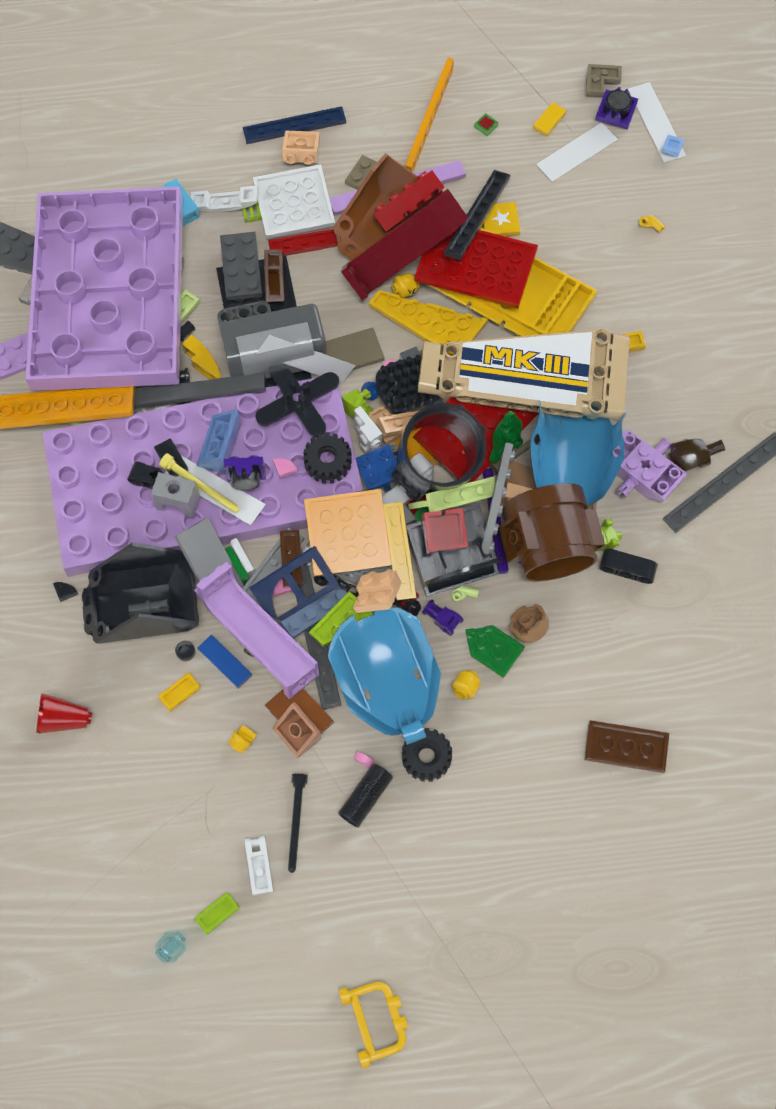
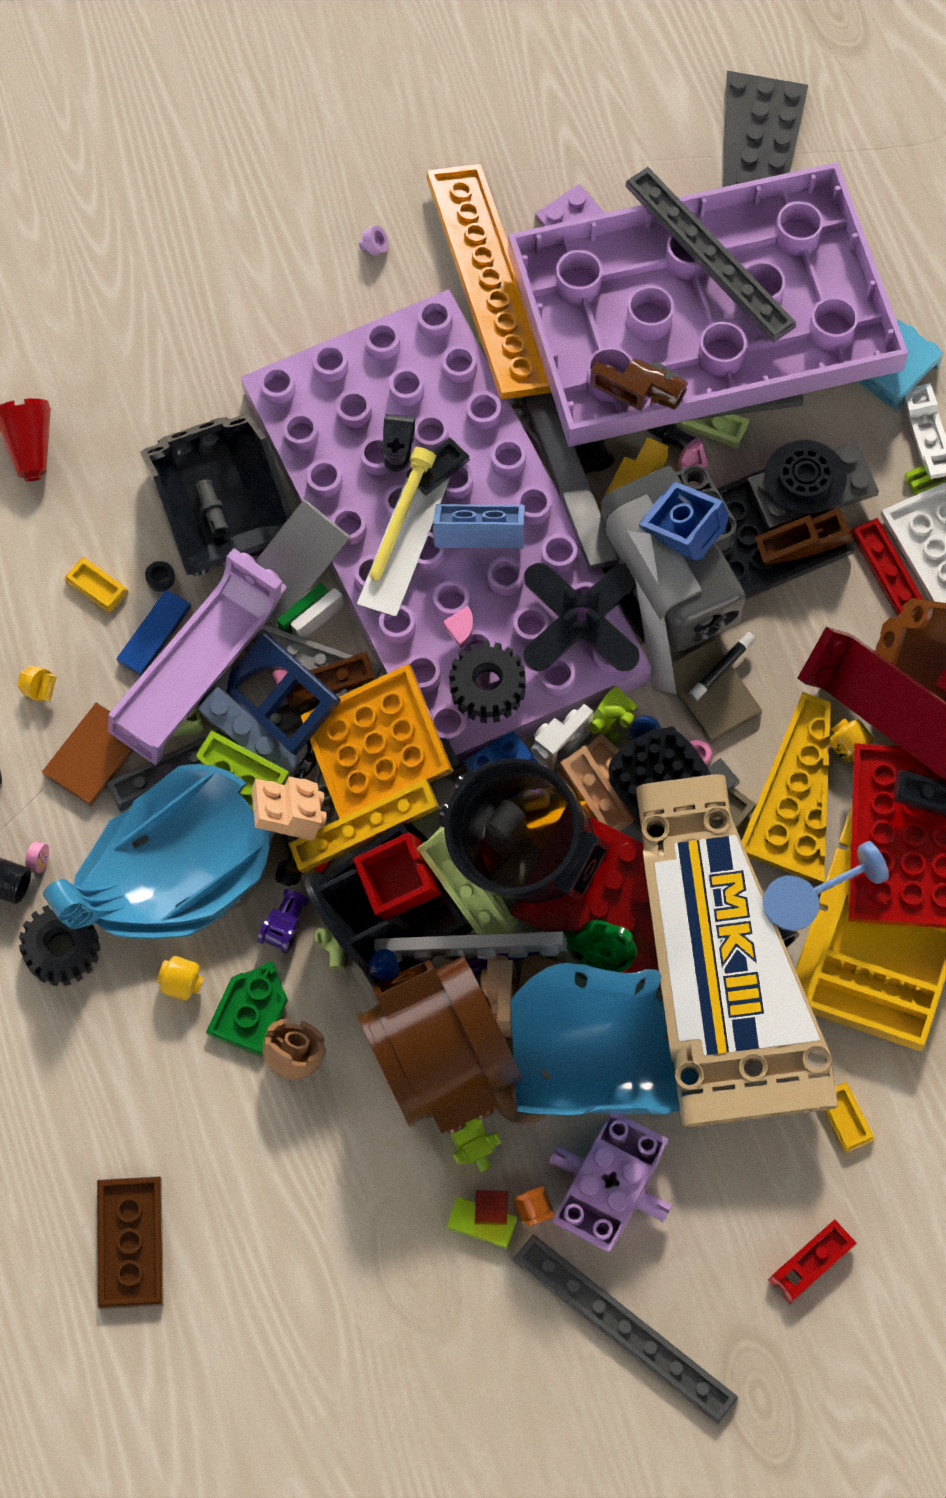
camera: 80 degrees right, 0 degrees up
(64, 591) = (219, 394): black tile -> none
(78, 272) = (711, 254): none -> dark grey tile
(159, 325) = (640, 383): none -> reddish brown plate
(185, 499) = (367, 483): light grey piece -> none
(200, 326) = (693, 455): none -> bright pink tile
(237, 259) = (805, 467): none -> black wheel
(245, 472) = (427, 568): piece -> none
(260, 319) = (686, 520): none -> blue slope
(297, 730) = (61, 754): nougat slope -> none
(337, 335) = (722, 666): none -> black bar
(499, 549) = (384, 965): none -> clear blue plate
(508, 323) = (794, 903): none -> medium blue piece
(628, 566) = (431, 1190): black beam -> none
(645, 534) = (491, 1207): none -> clear red tile
(651, 509) = (534, 1206): none -> orange piece
(652, 542) = (463, 1221): none -> lime tile
(693, 453) = (655, 1260): dark brown piece -> none
(705, 377) = (813, 1260): none -> red plate

